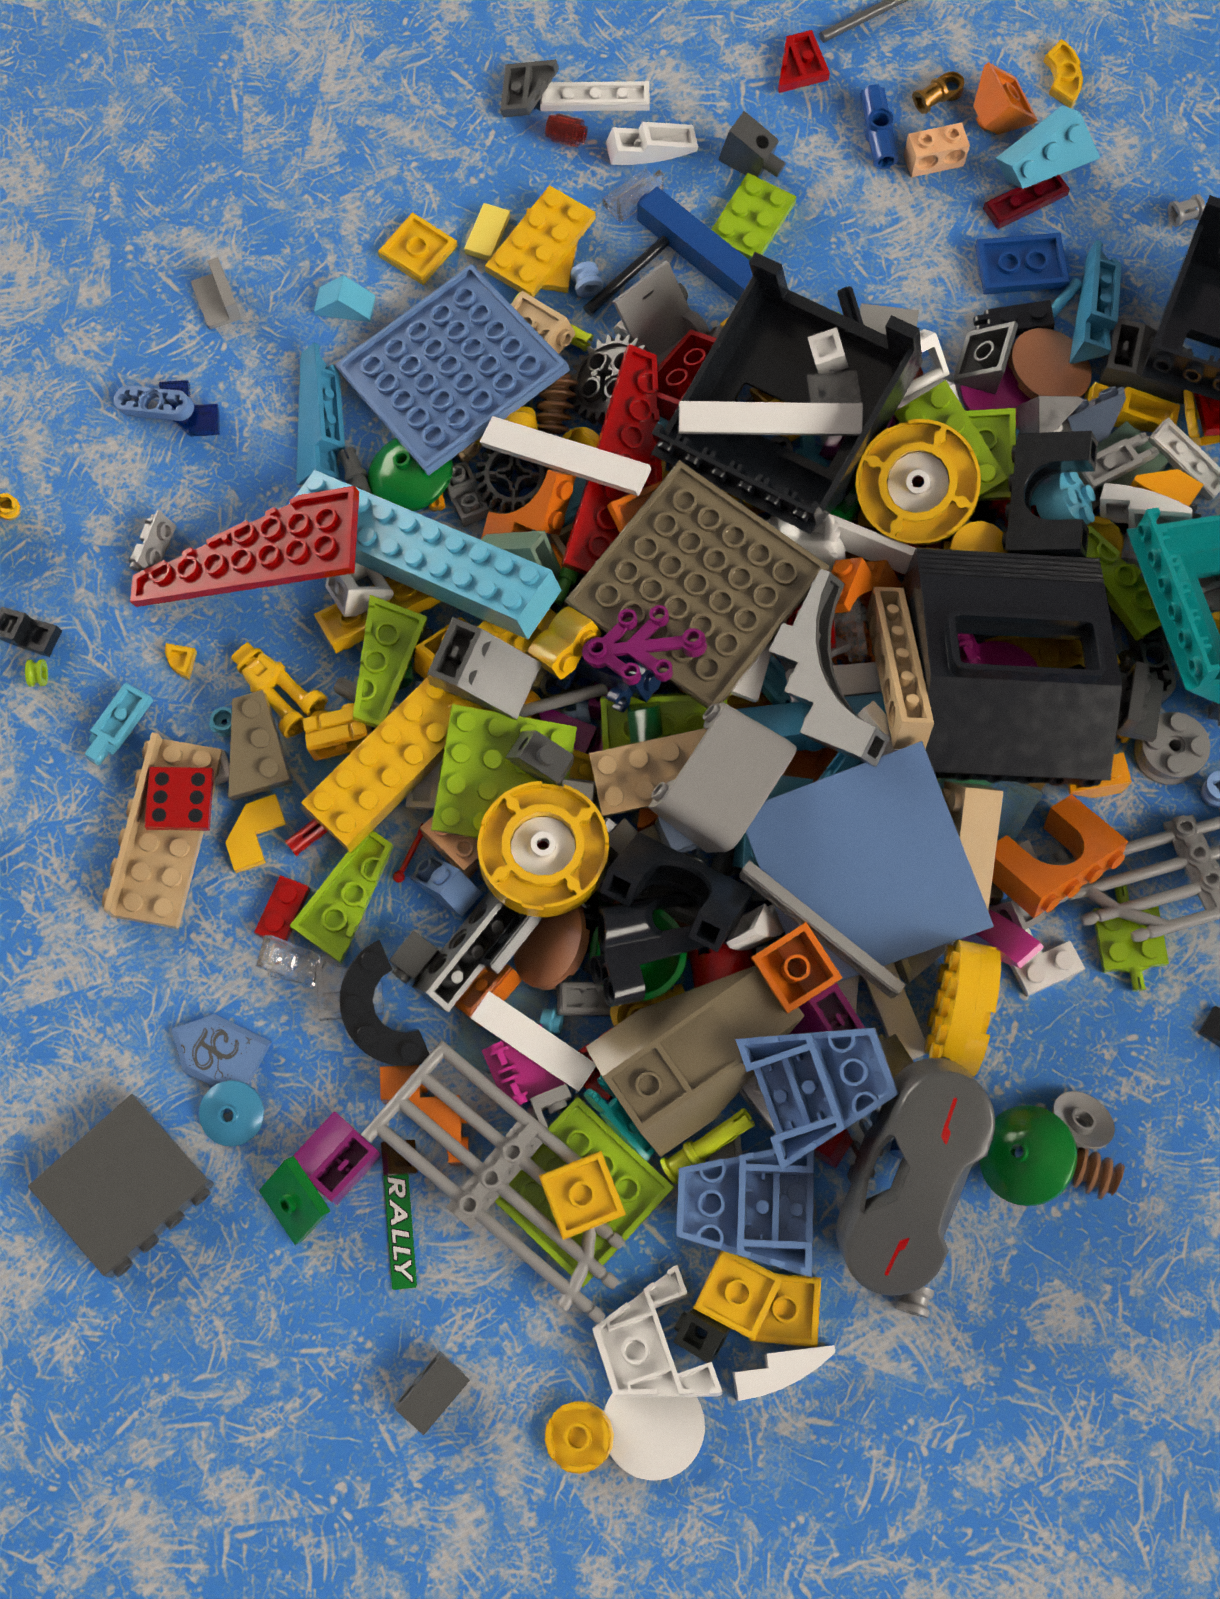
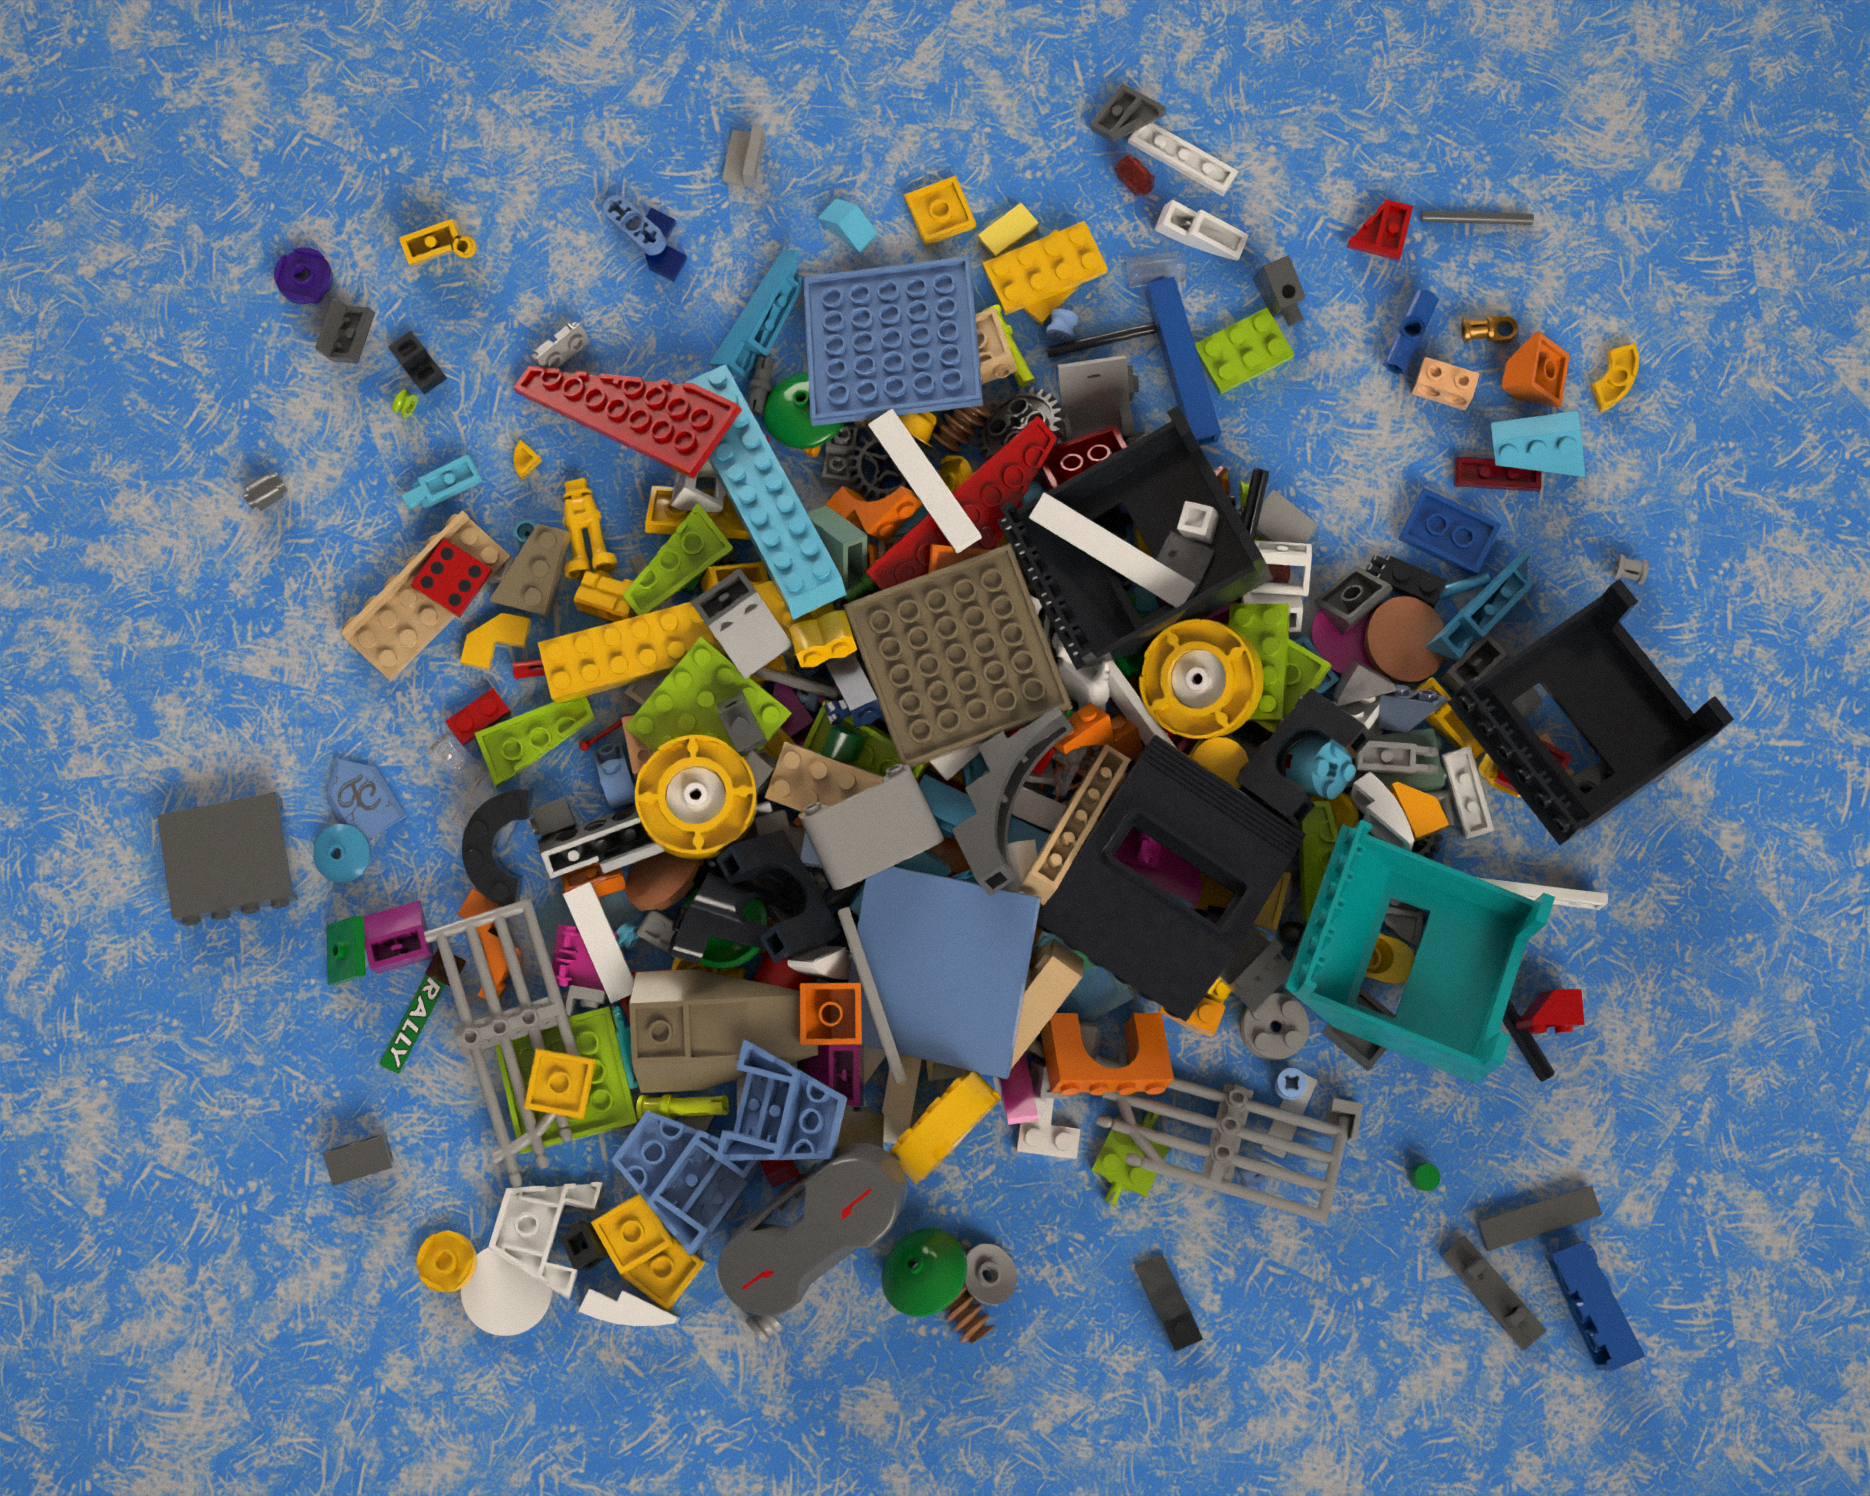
camera: 30 degrees right, 5 degrees up
(640, 646) = (876, 680): magenta plant -> none

